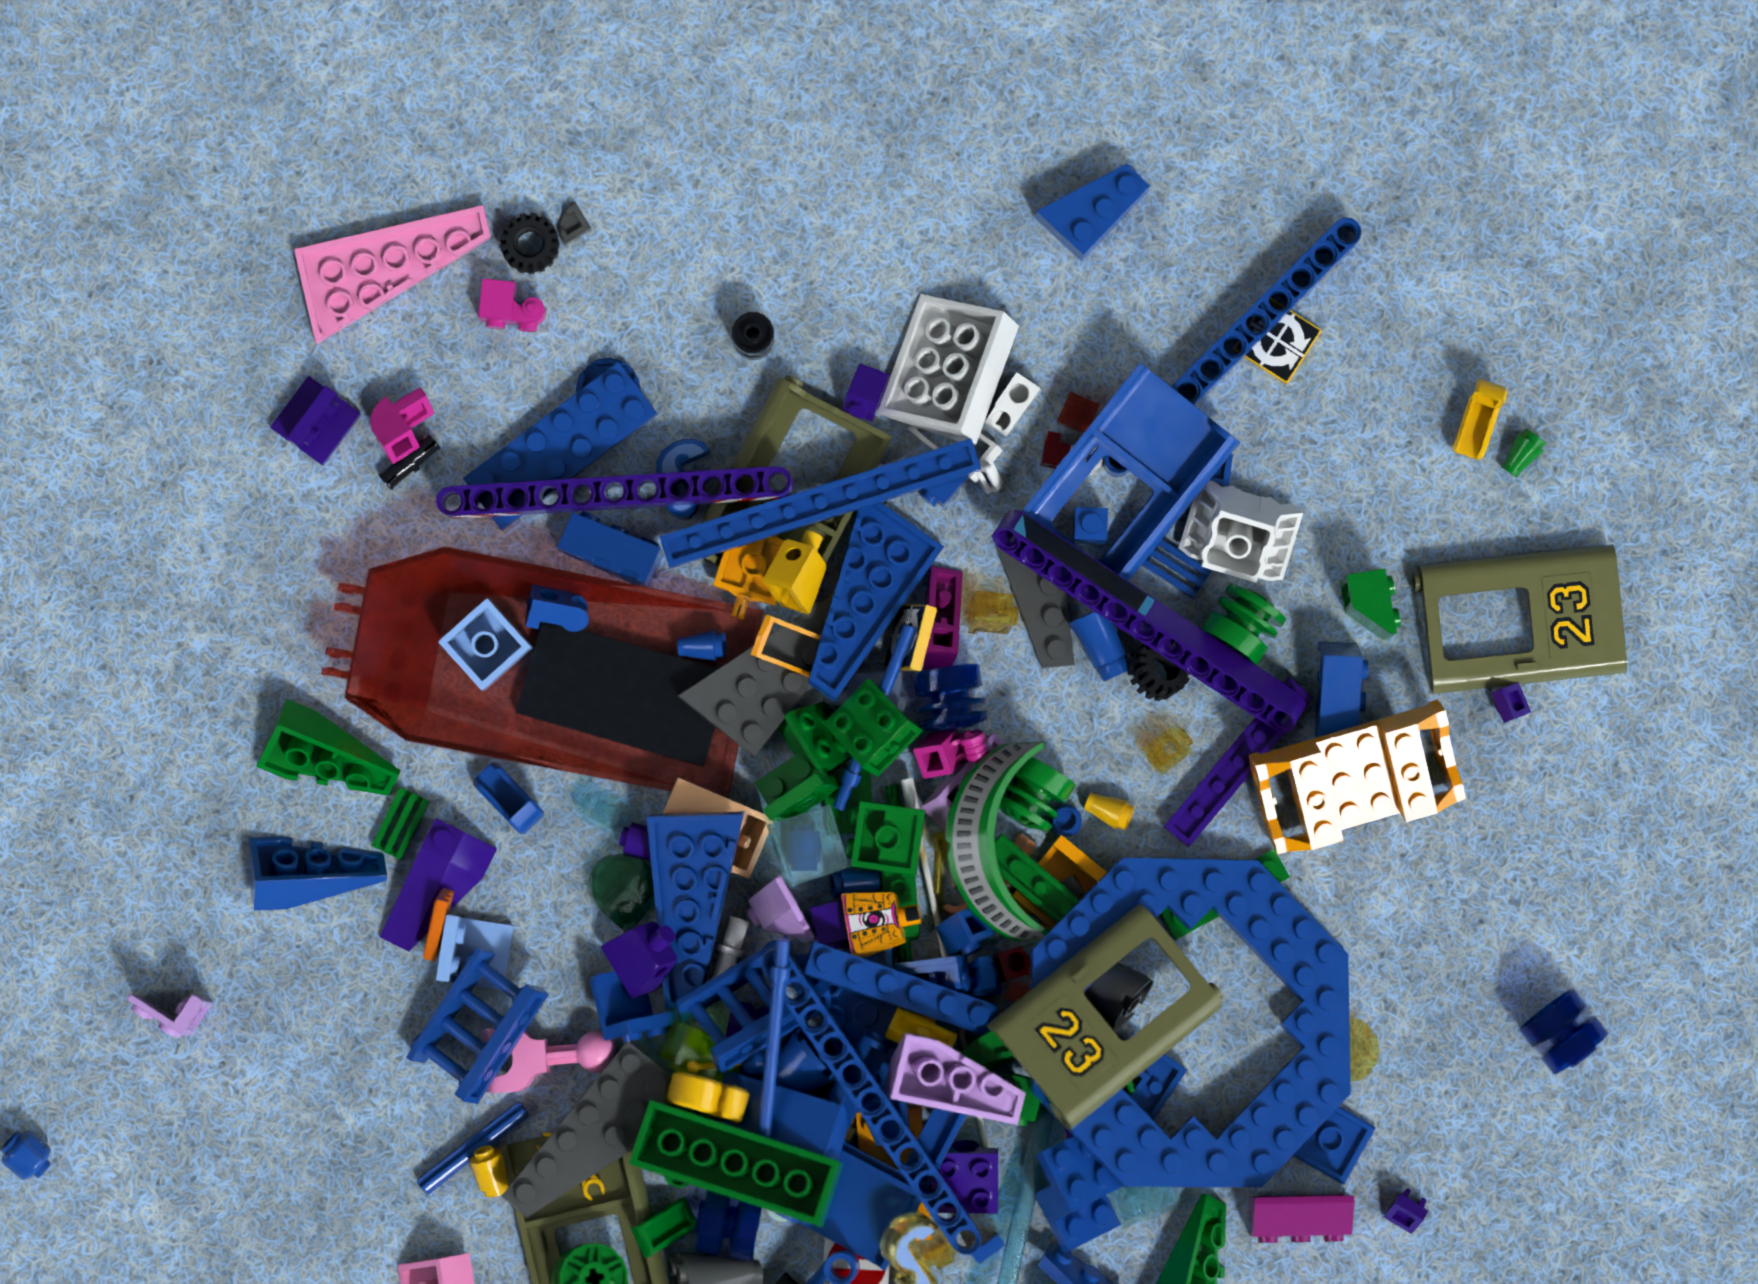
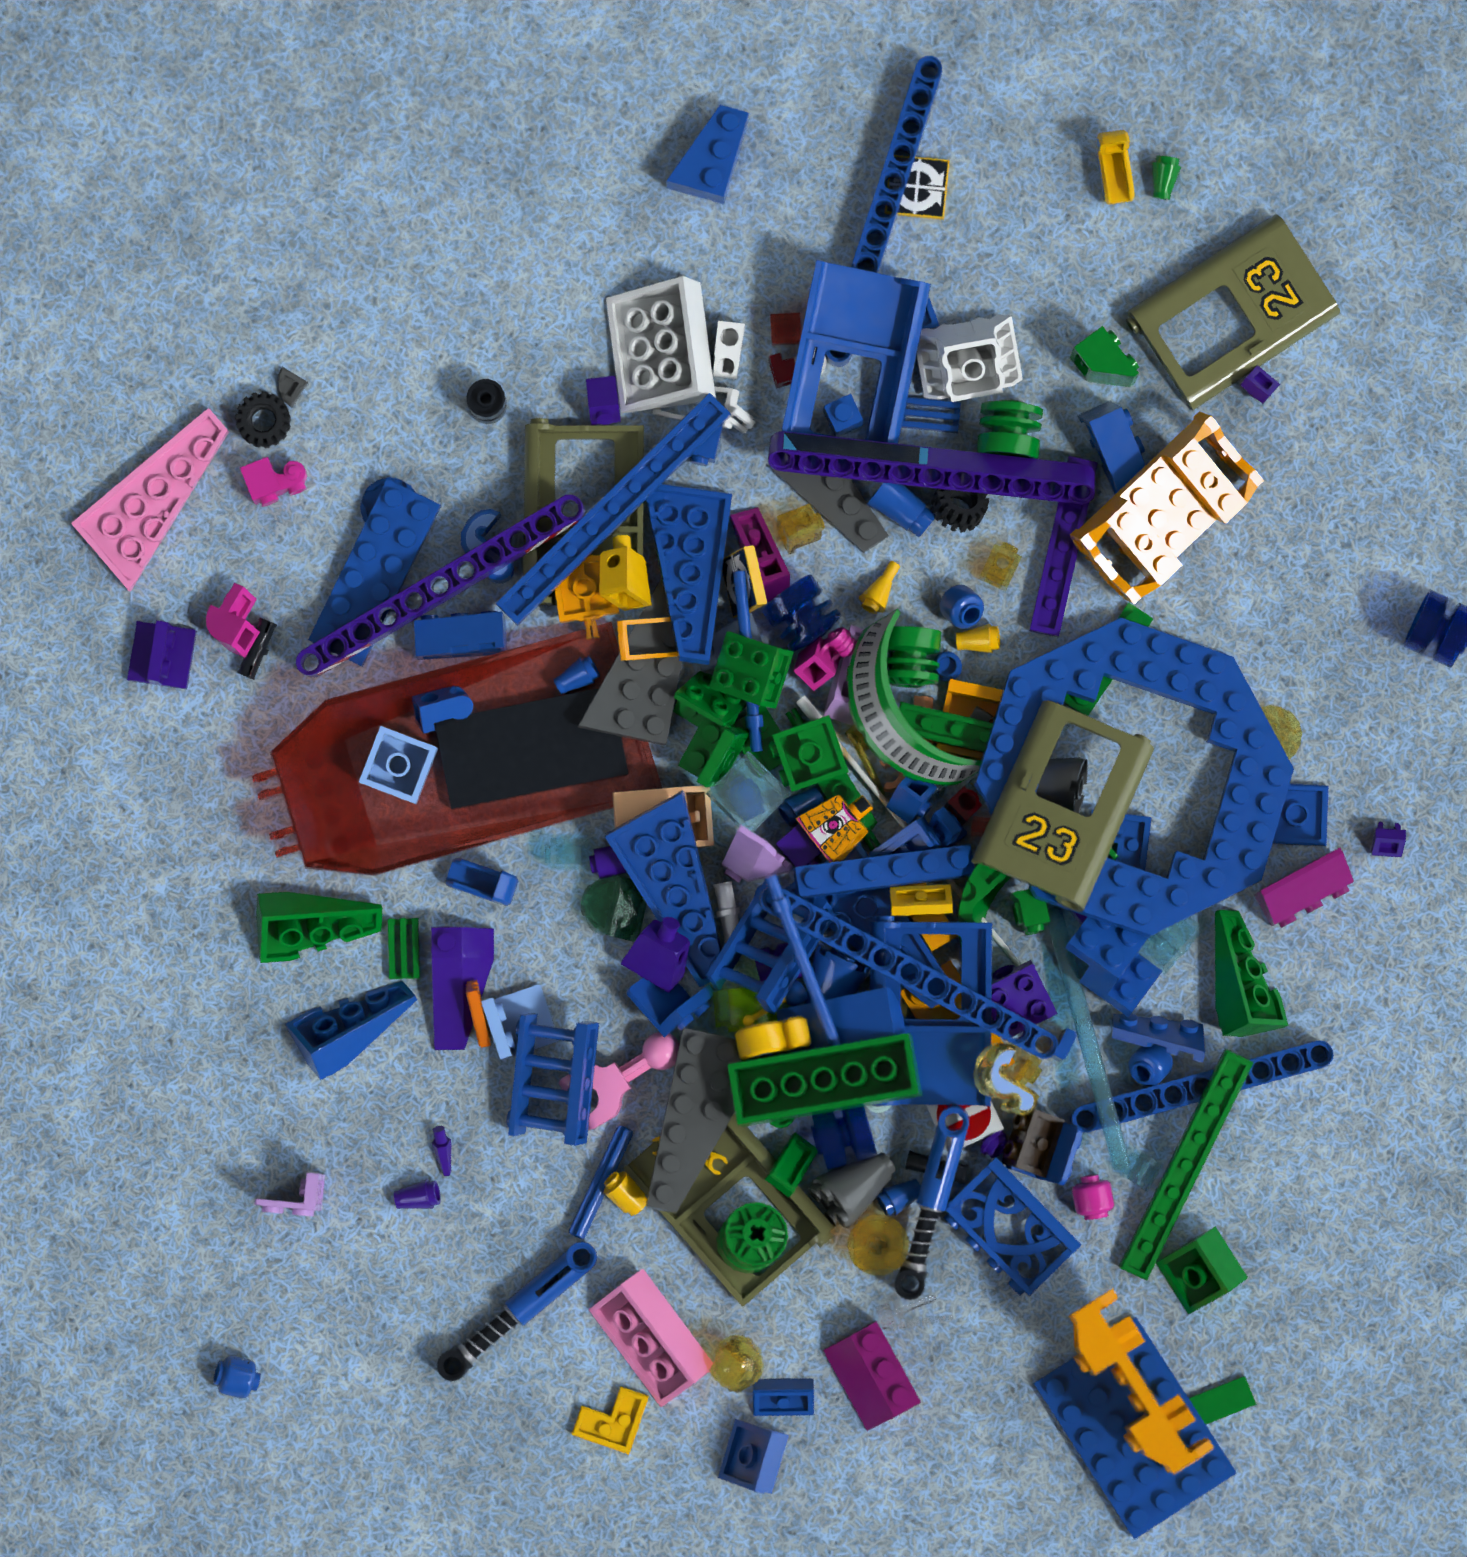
camera: 20 degrees left, 0 degrees up
(291, 1070) = (418, 1196): none -> dark purple cone
(330, 1231) = (519, 1309): none -> piece
(337, 1037) = (442, 1149): none -> dark purple bar
(942, 1078) = (957, 923): lavender wedge -> none
(1033, 716) = (876, 596): none -> yellow cone
(1109, 770) = (961, 606): none -> blue head

